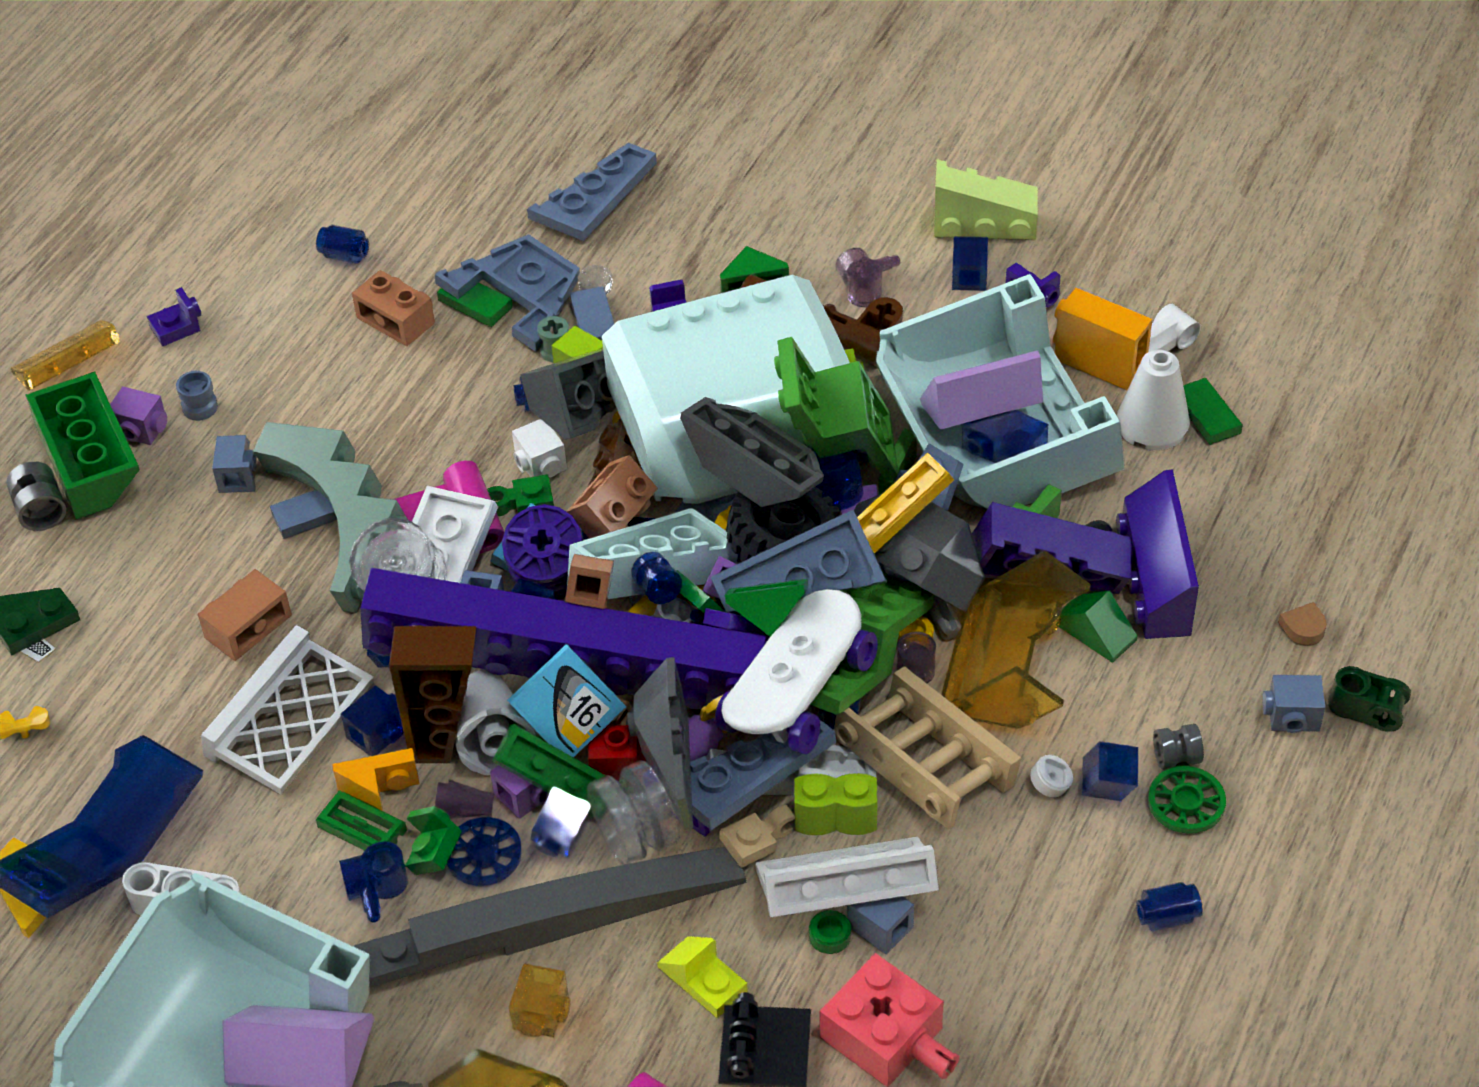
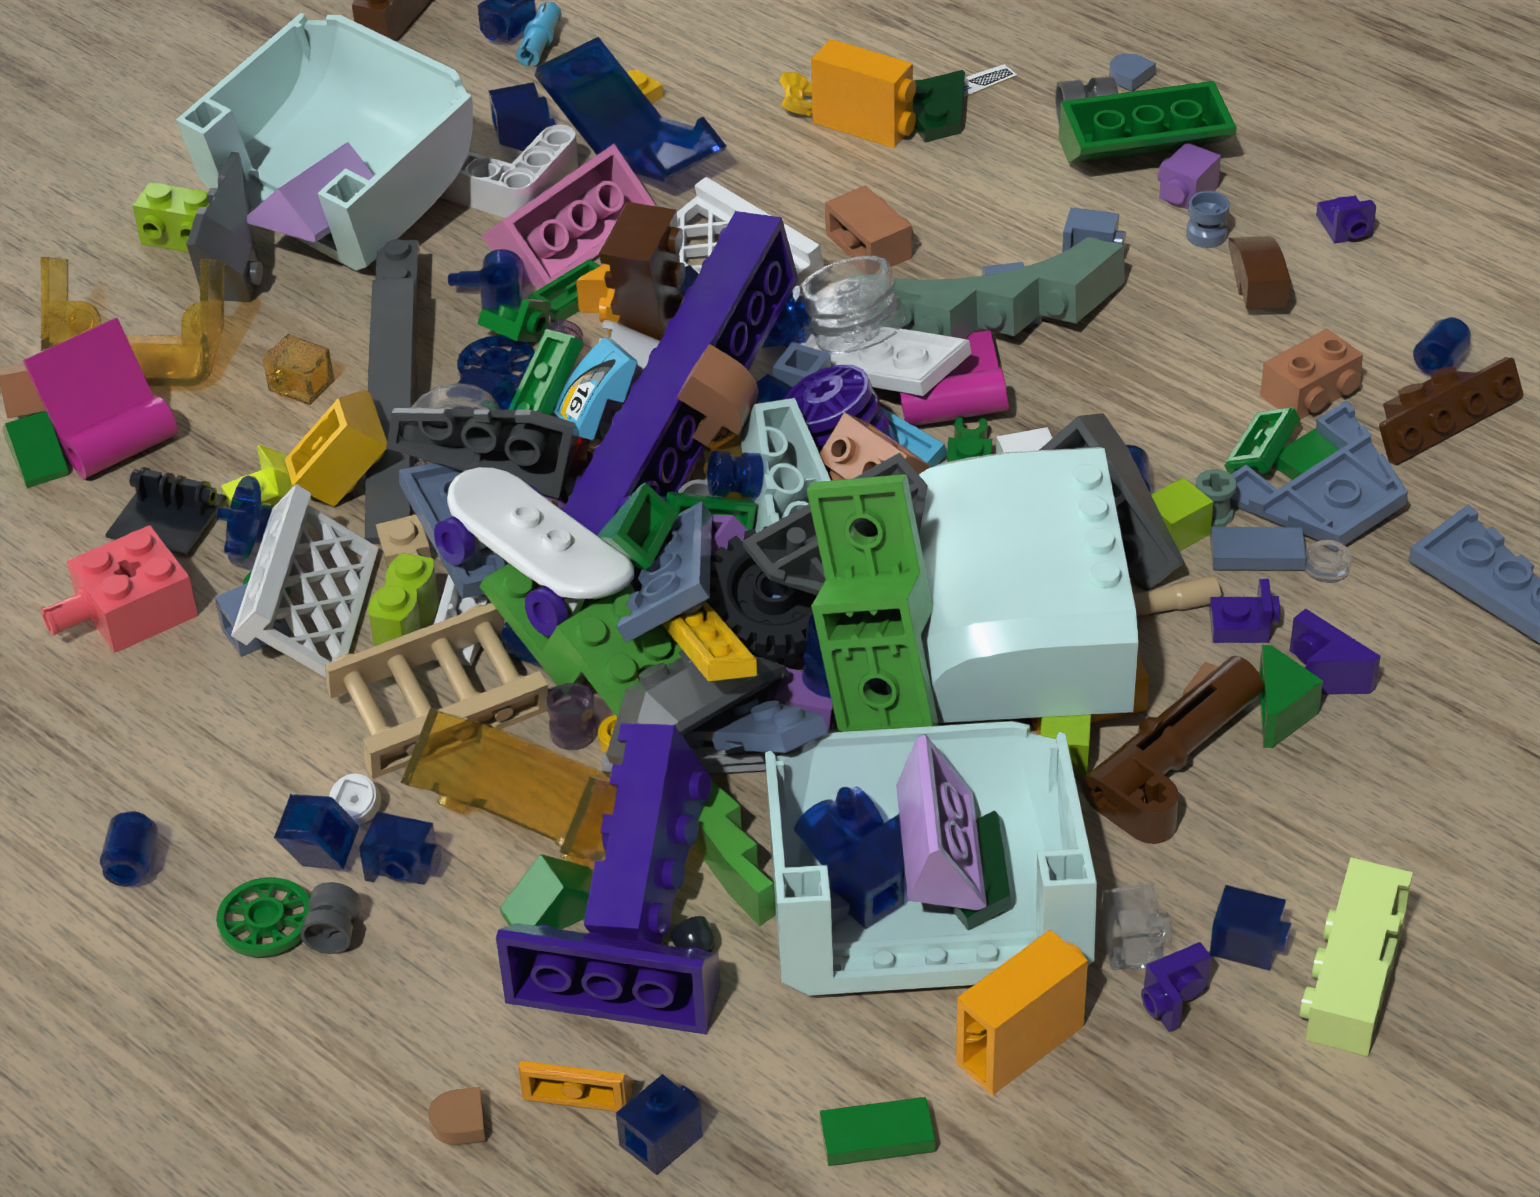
camera: 105 degrees right, 5 degrees down
(46, 648) = (863, 93): none -> light orange brick
(65, 354) = (1315, 142): clear yellow slope -> none
(93, 935) = (519, 115): none -> clear blue slope
(259, 355) = (1260, 271): none -> reddish brown slope
(259, 848) = (569, 218): none -> bright pink slope
(406, 241) = (1446, 405): none -> reddish brown bracket
(505, 330) = (1263, 440): none -> green tile
(660, 907) = (338, 448): none -> yellow slope
(704, 256) = (1333, 656): none -> dark purple slope
(777, 948) = (245, 520): none -> clear blue piece
(863, 274) = (1252, 805): clear purple piece -> none
(974, 451) = (837, 823): none -> clear blue piece
(1094, 721) = (399, 849): none -> clear blue brick
(1155, 403) = (884, 1044): white cone -> none
(1173, 328) = (1039, 1123): white piece -> none
(1248, 565) = (574, 1086): none -> light orange slope
(1263, 507) = (660, 1124): none -> clear blue brick
(1295, 703) = (332, 1051): sand blue brick -> none
(1366, 697) = (297, 1134): dark green piece -> none

